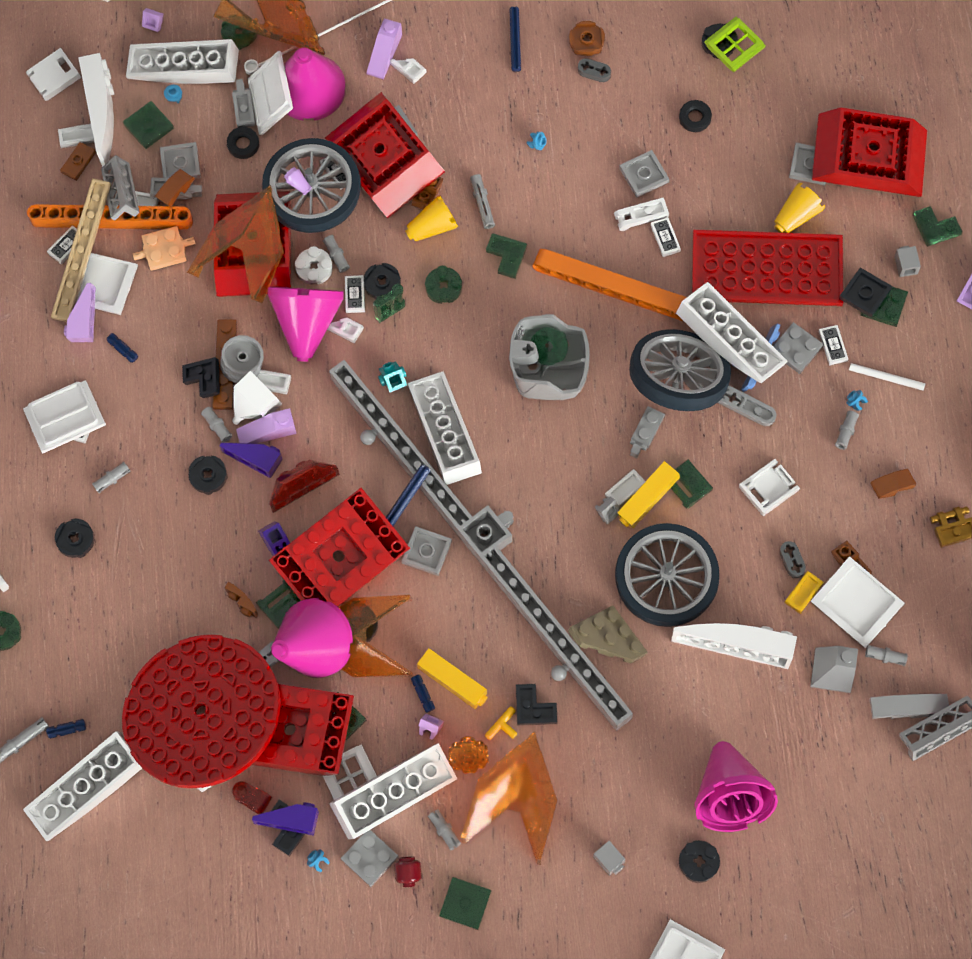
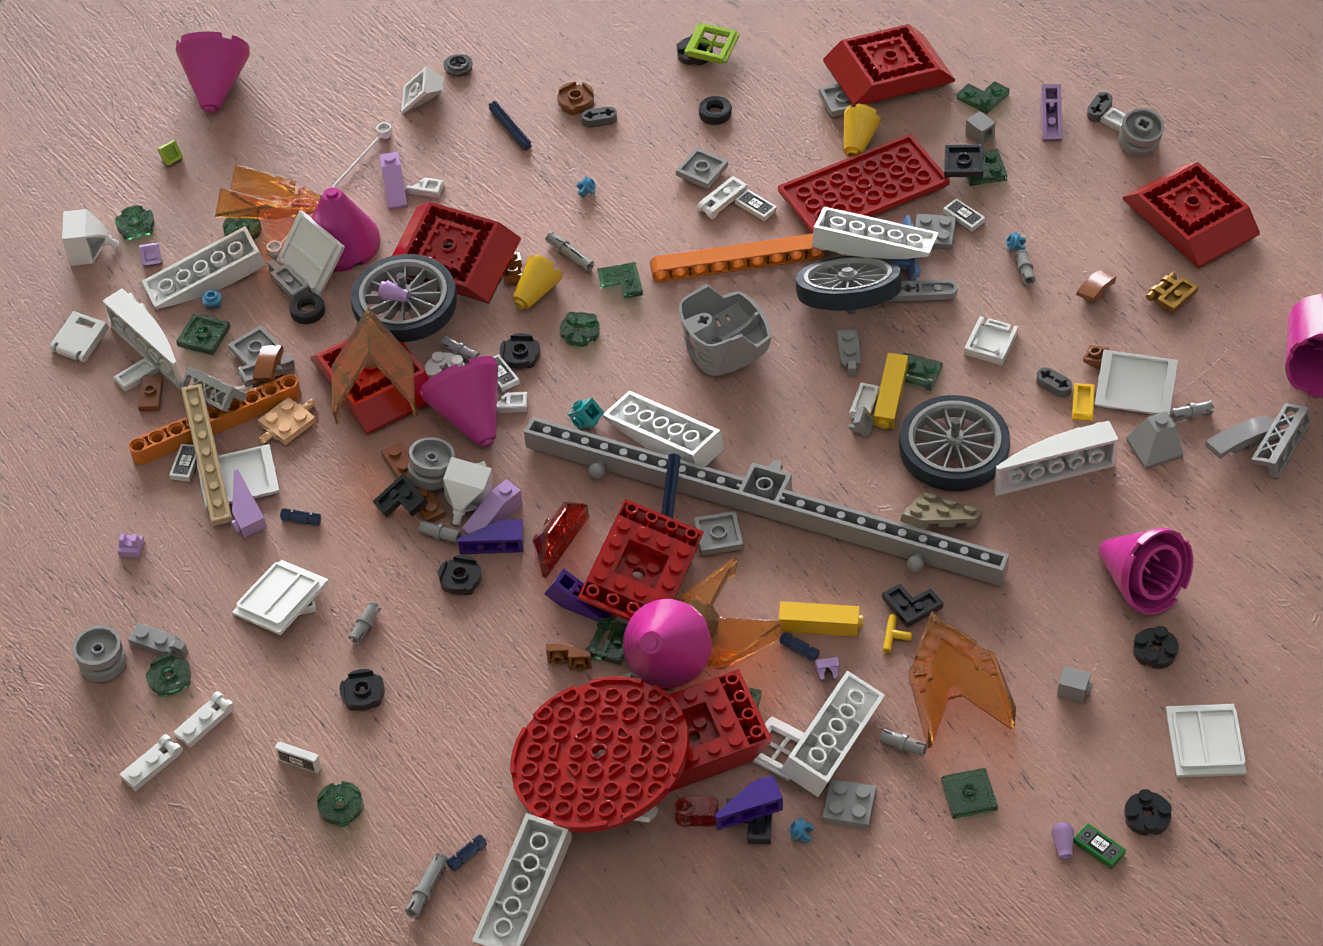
camera: 30 degrees left, 20 degrees down
(384, 304) = (541, 359): clear green plate -> none
(407, 871) = (895, 792): dark red head -> none
(468, 755) = (882, 667): clear orange plant -> none
(559, 342) = (729, 317): clear green plate -> none
(887, 376) = (1028, 216): white bar -> none

